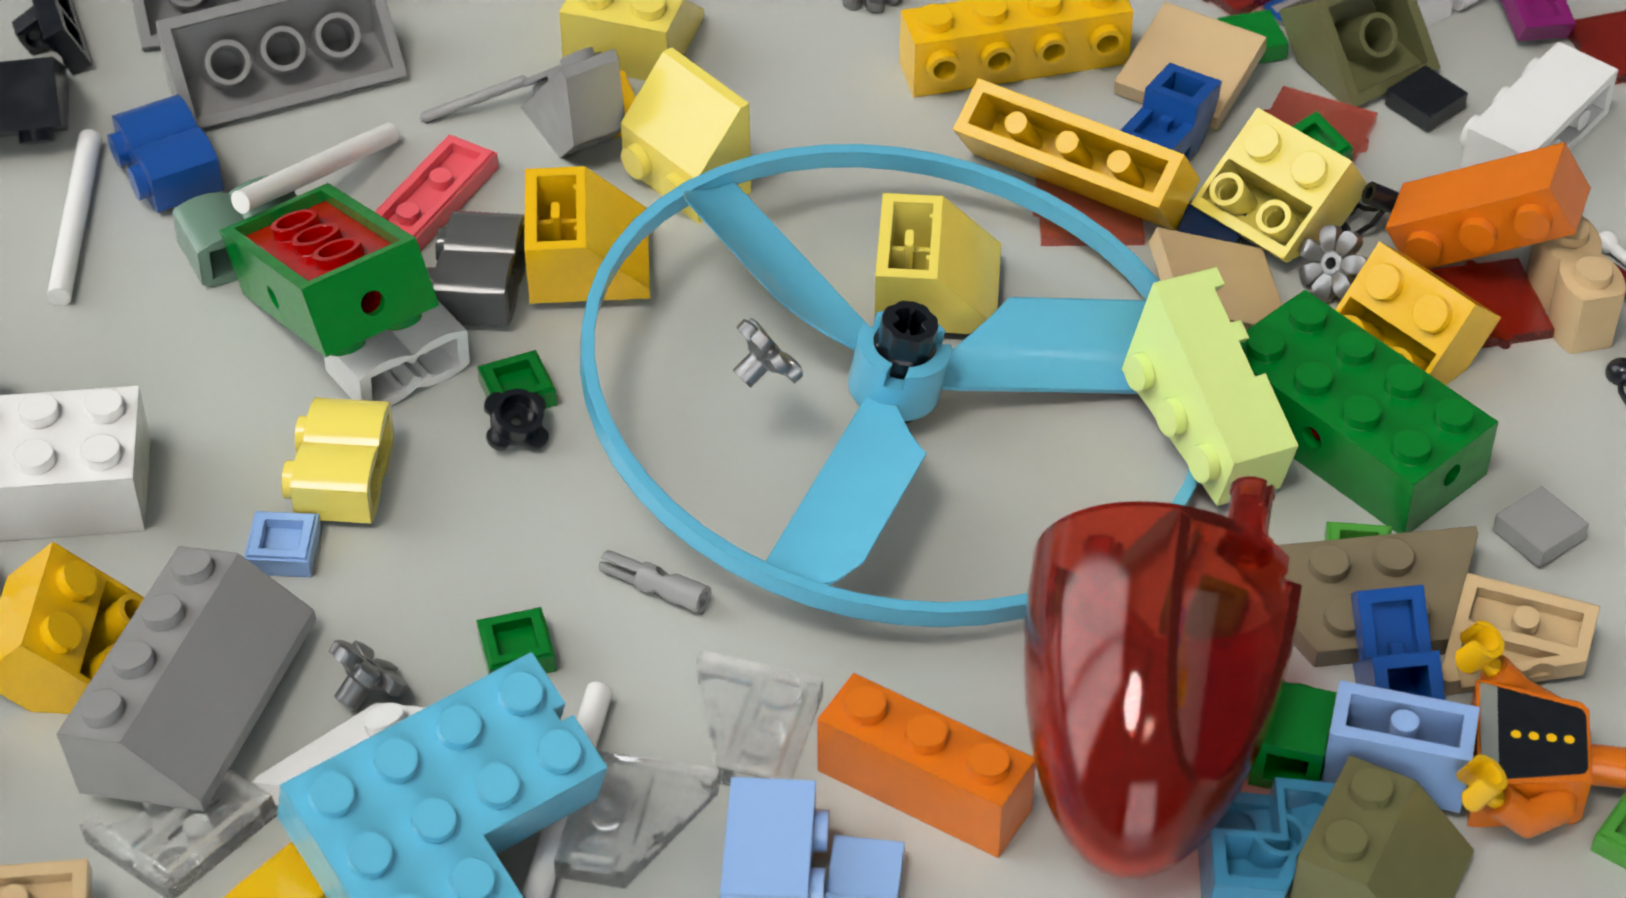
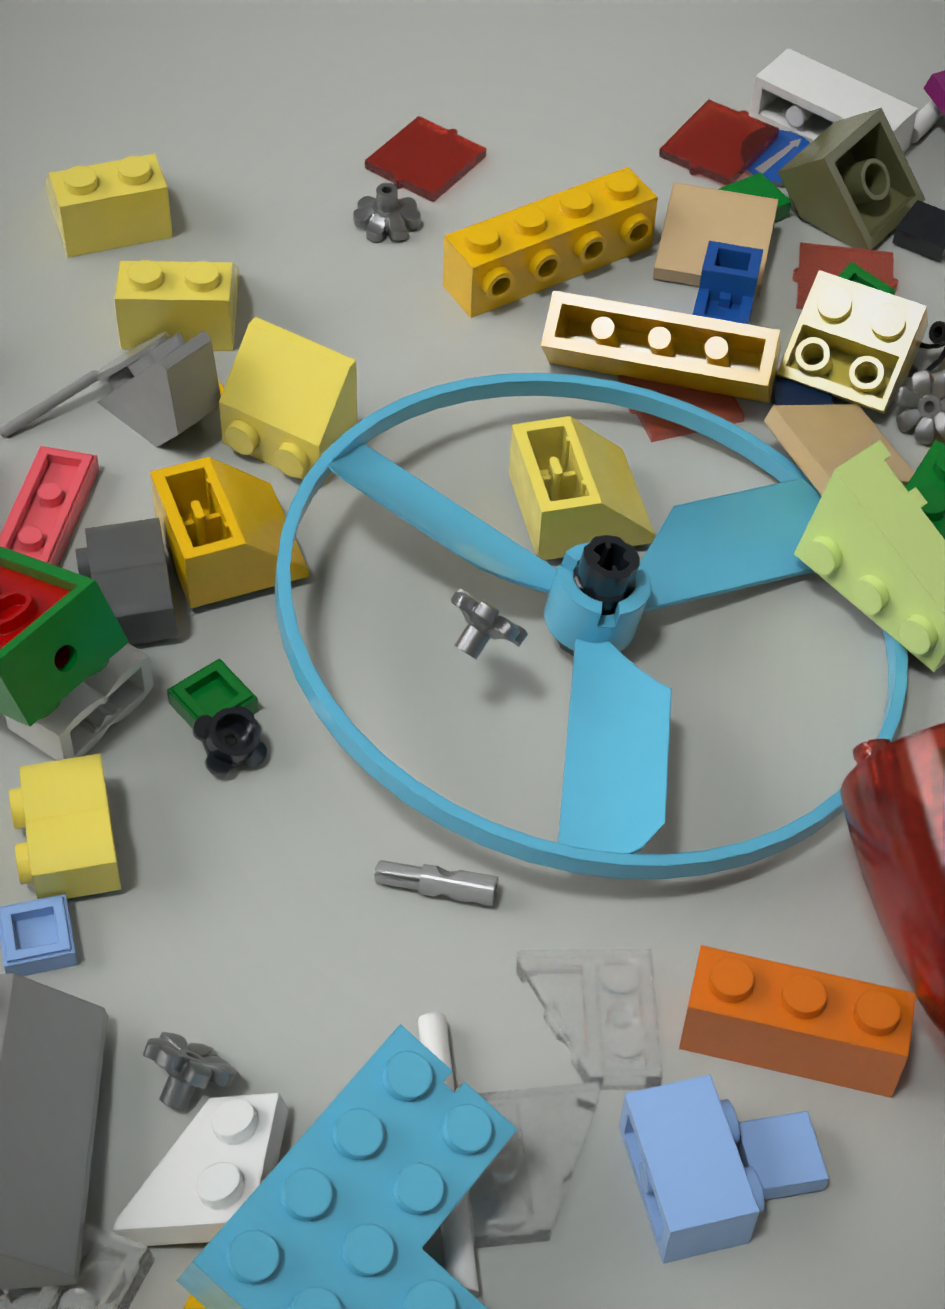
camera: 20 degrees left, 5 degrees up
(513, 636) = (326, 990): green tile -> none

